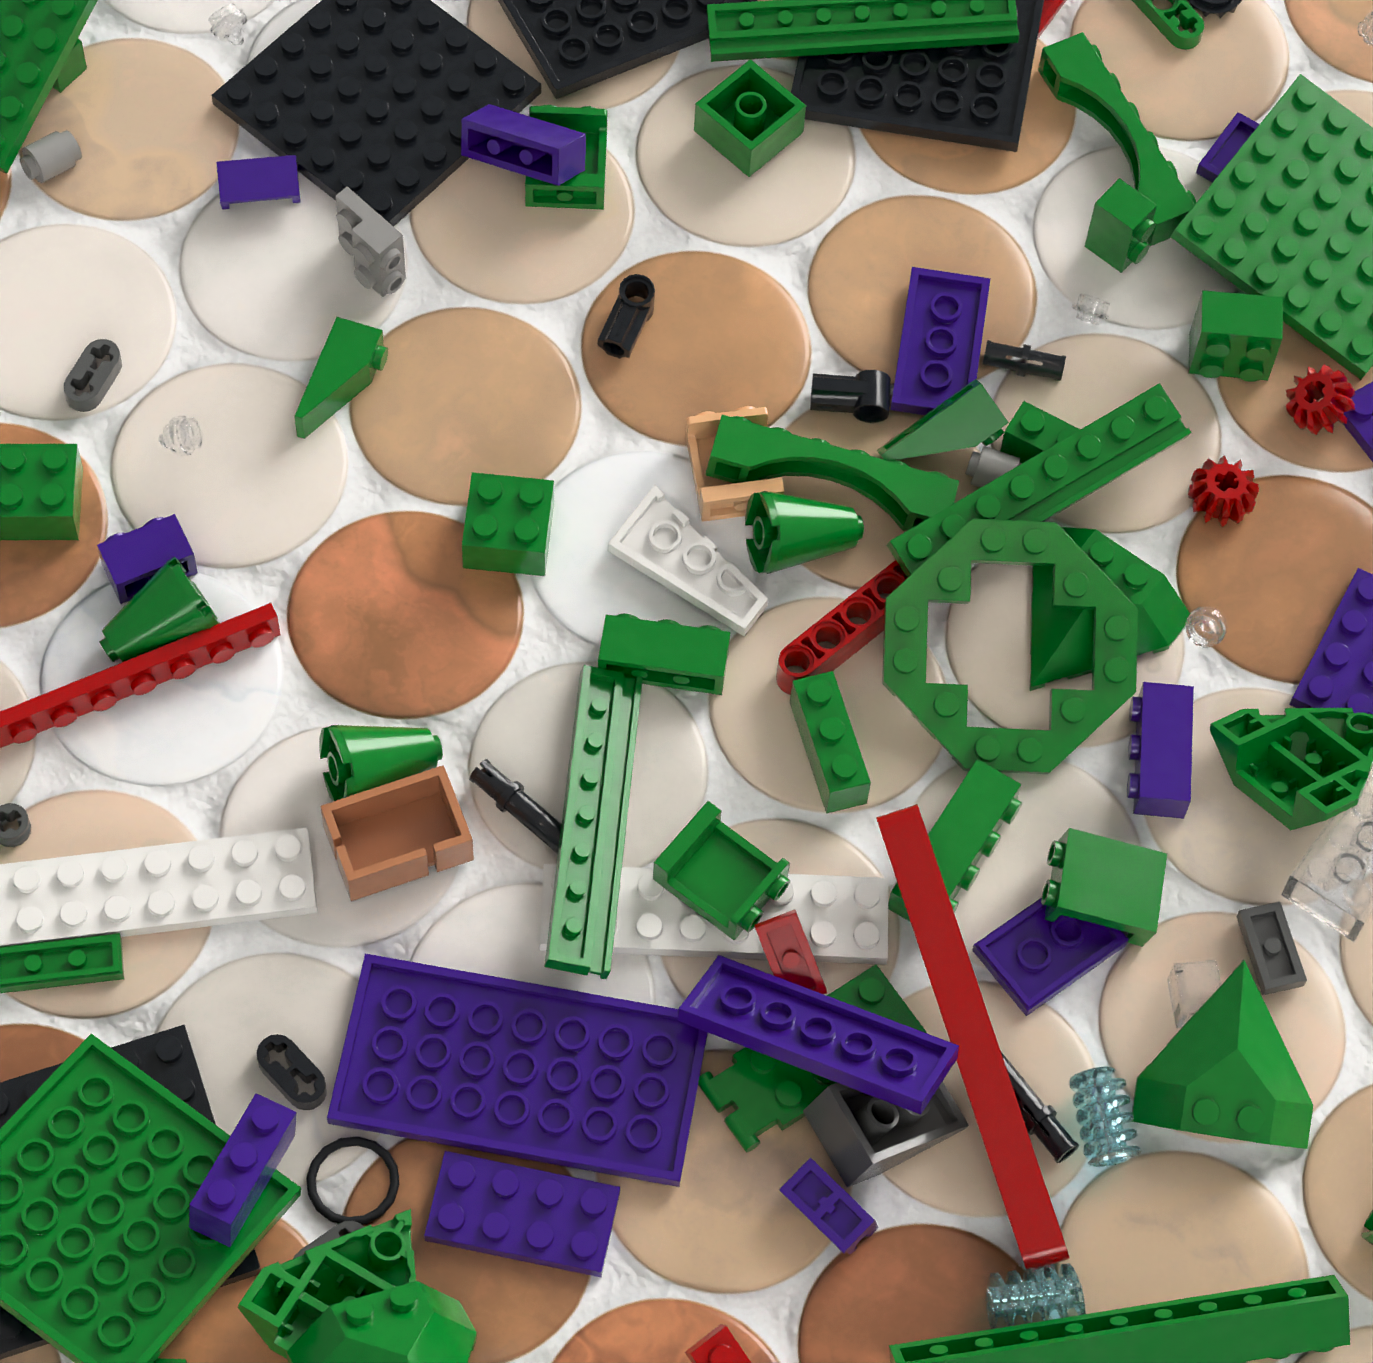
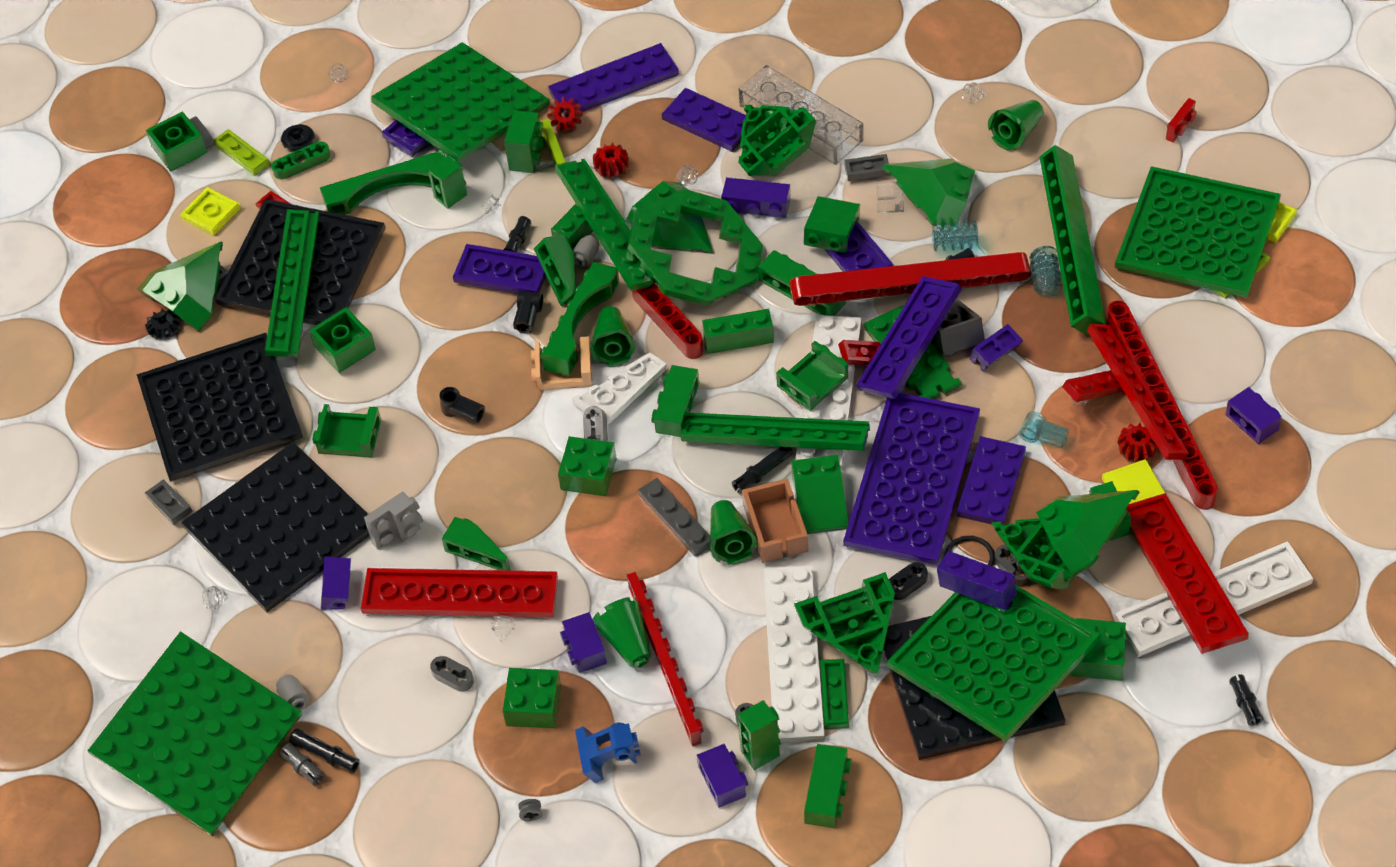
camera: 75 degrees left, 10 degrees down
(181, 971) = (853, 621): none -> green wedge
(246, 368) = (459, 592): none -> red plate
(421, 675) = (675, 516): none -> dark grey plate
(468, 909) = (820, 493): none -> green slope
(523, 144) = (342, 441): dark purple brick -> none
(591, 528) = (595, 428): none -> beam
(641, 1295) = (1037, 428): none -> clear light blue piece
(1239, 393) = (552, 143): none -> lime tile

